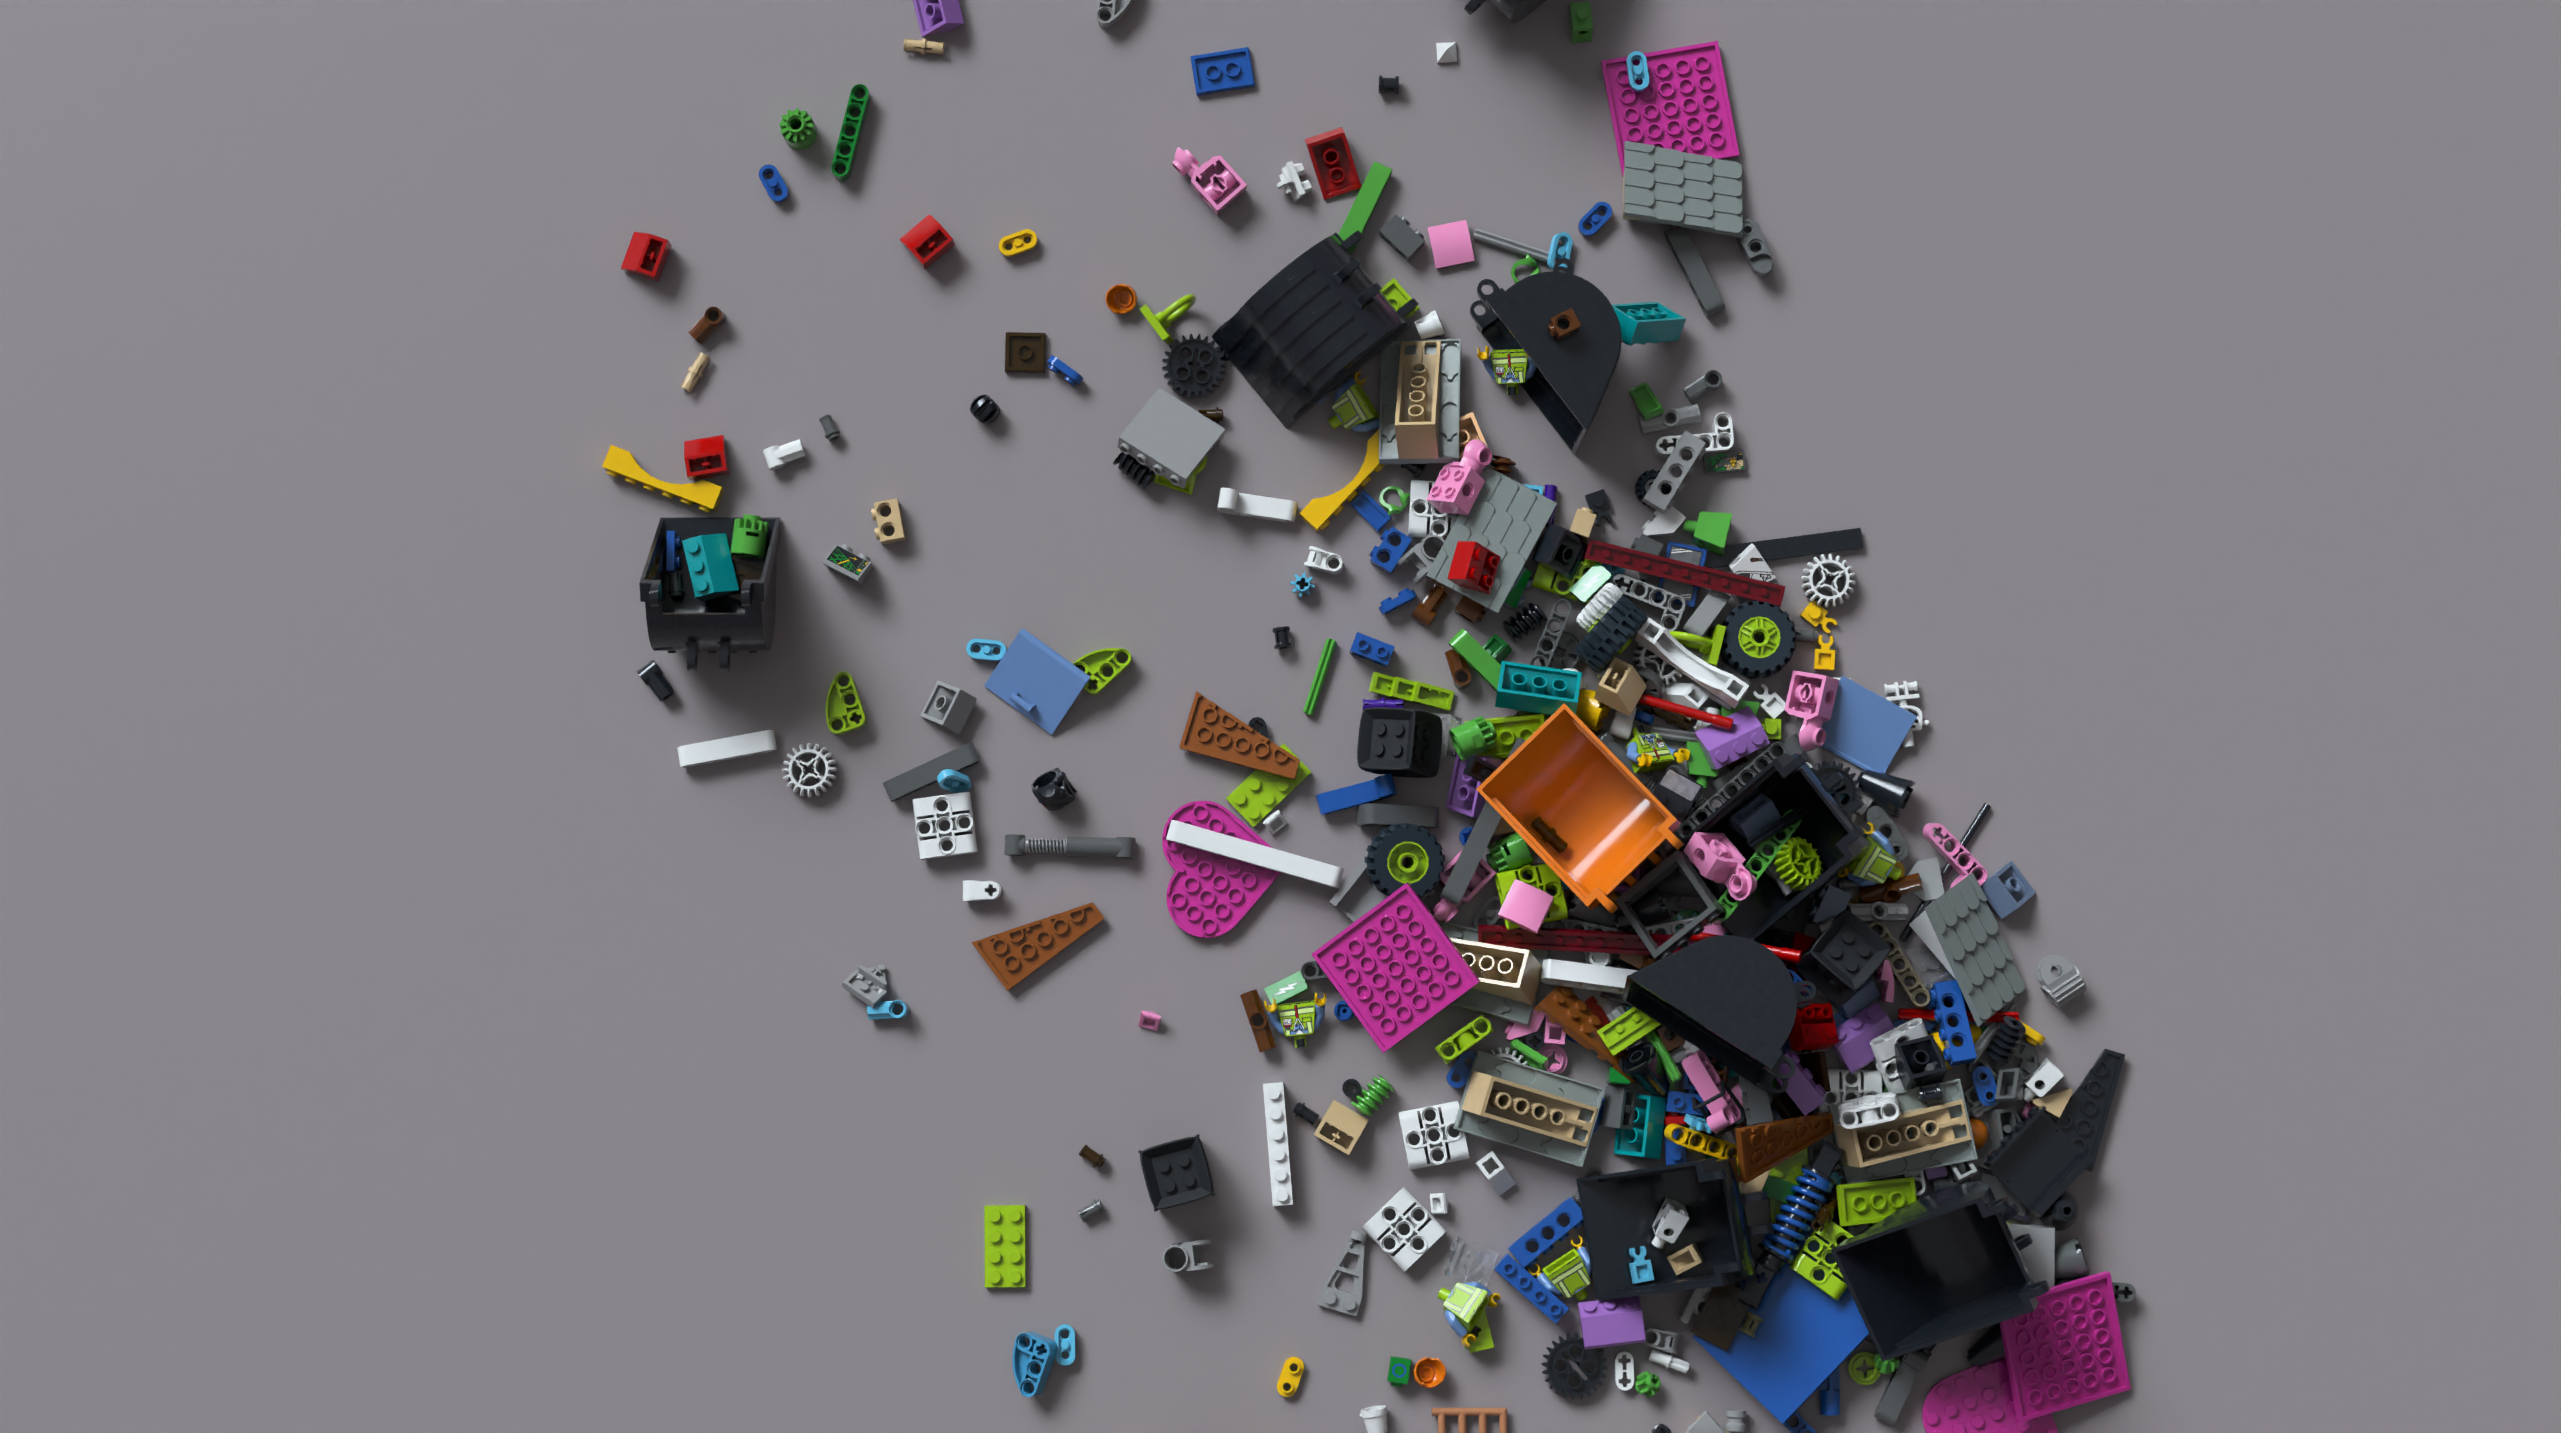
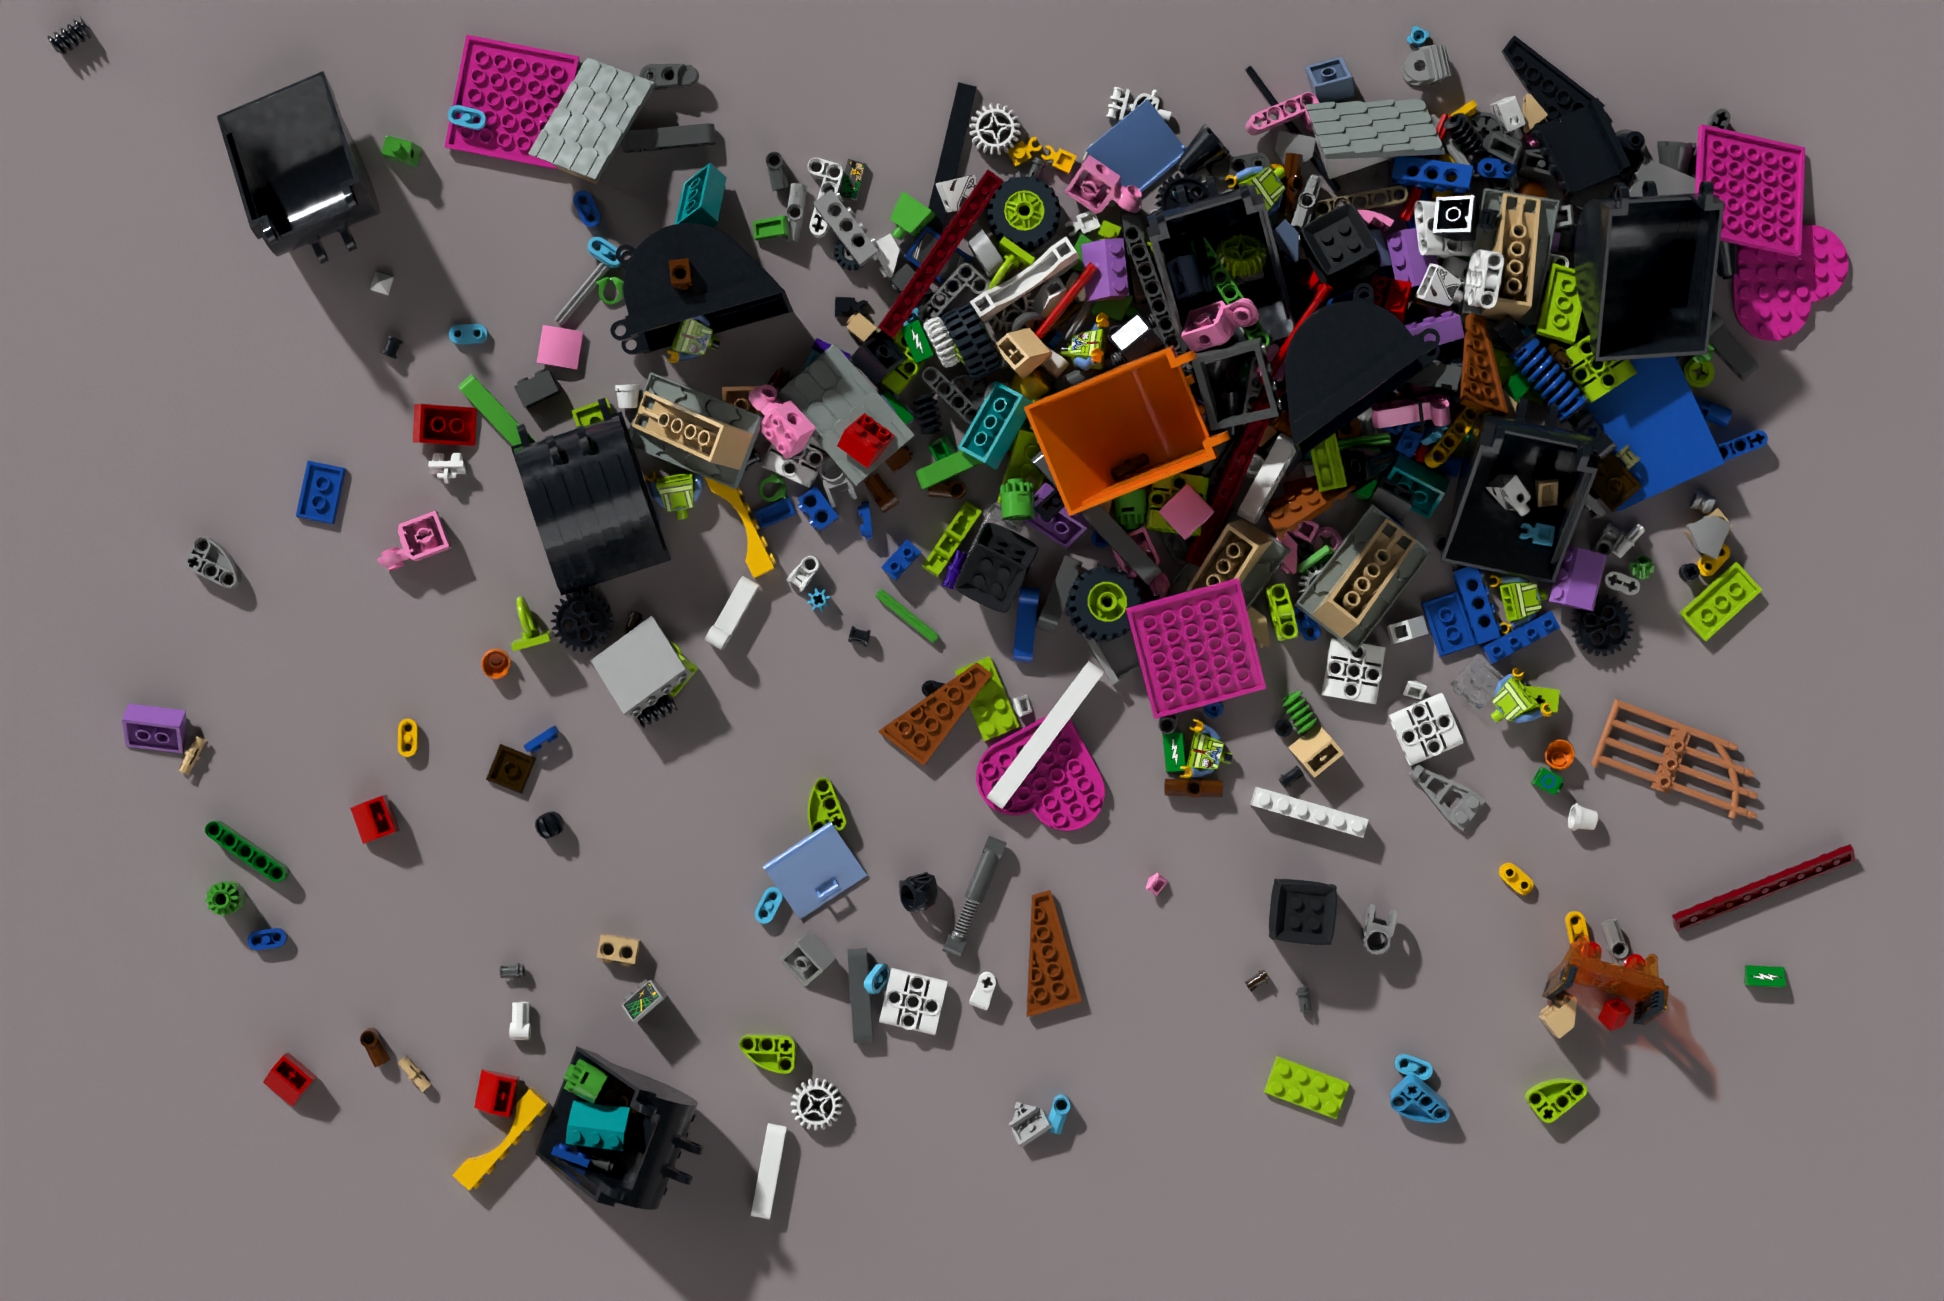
camera: 70 degrees left, 5 degrees up
(653, 676) = (677, 1214): black piece -> none
(1429, 152) = (467, 334): none -> medium azure plate
(1440, 1023) = (1259, 627): none -> tan slope
(1517, 1212) = (1448, 623): none -> blue tile
(1845, 1073) = (1439, 286): none -> white torso
(2090, 957) = (1416, 31): none -> medium azure plate

